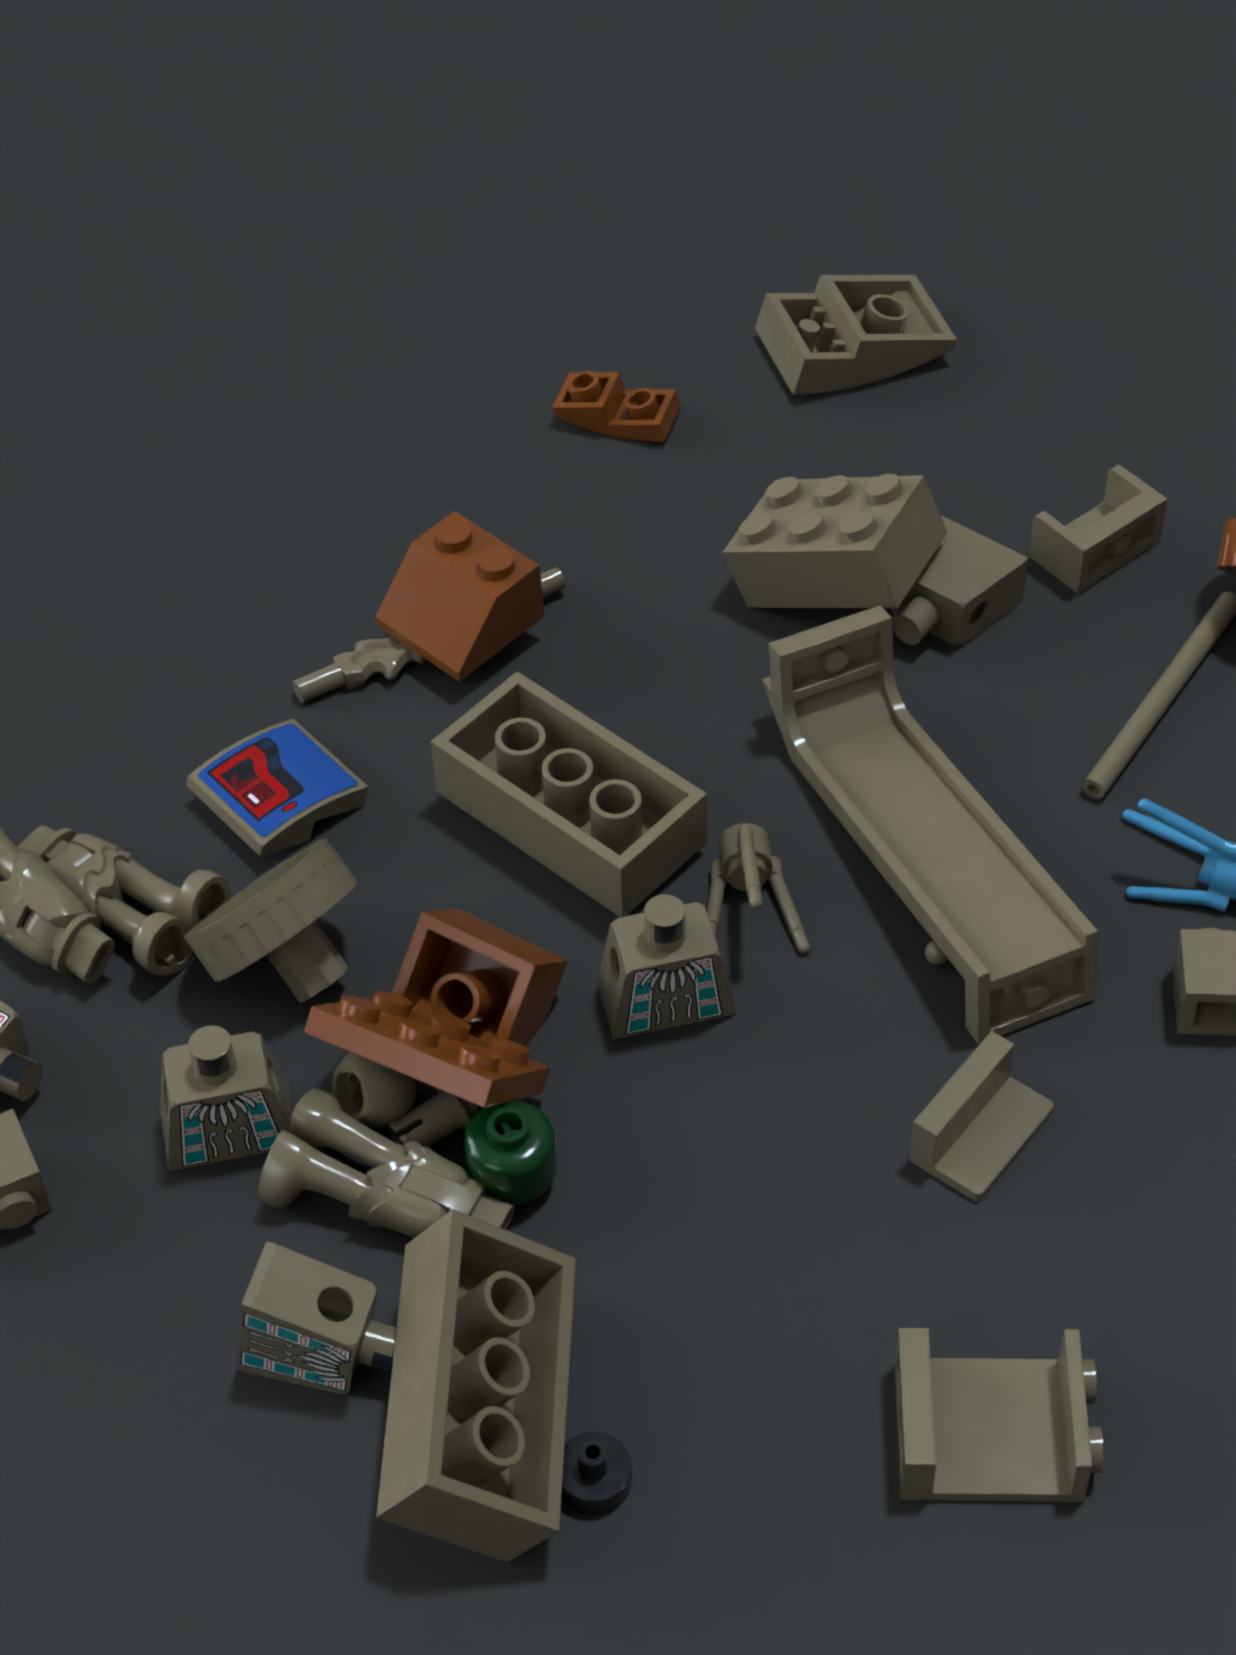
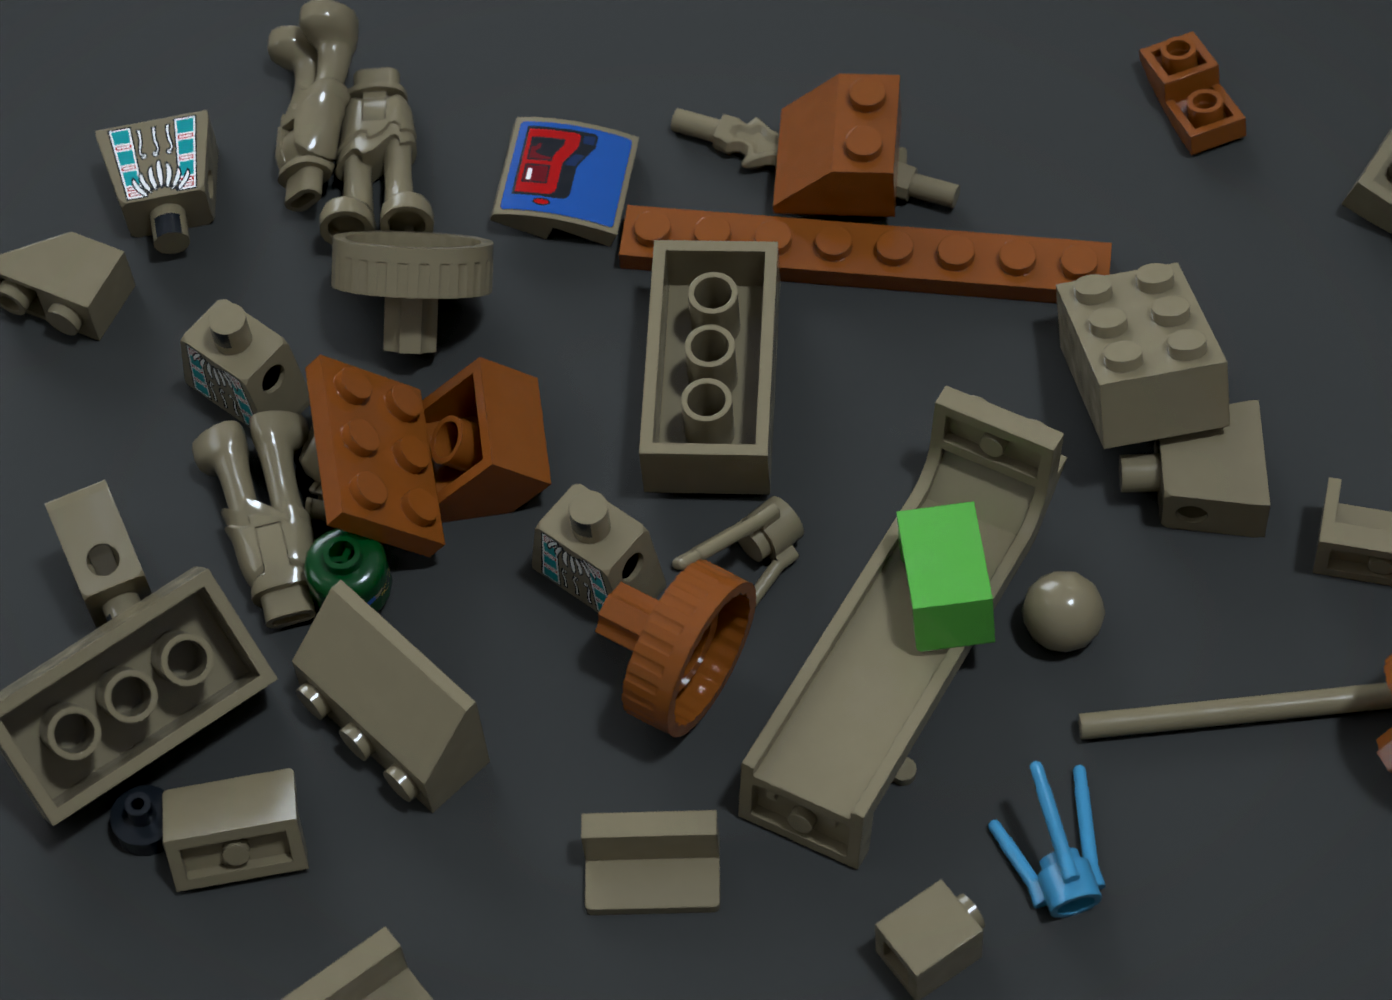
camera: 55 degrees right, 10 degrees up
(554, 655) = (880, 254): none -> dark orange plate
(671, 1188) = (389, 700): none -> dark tan slope
(679, 1397) = (233, 830): none -> dark tan panel
(824, 951) = (679, 643): none -> dark orange piece
(921, 749) = (946, 576): none -> bright green panel
(993, 731) = (1063, 611): none -> dark tan piece

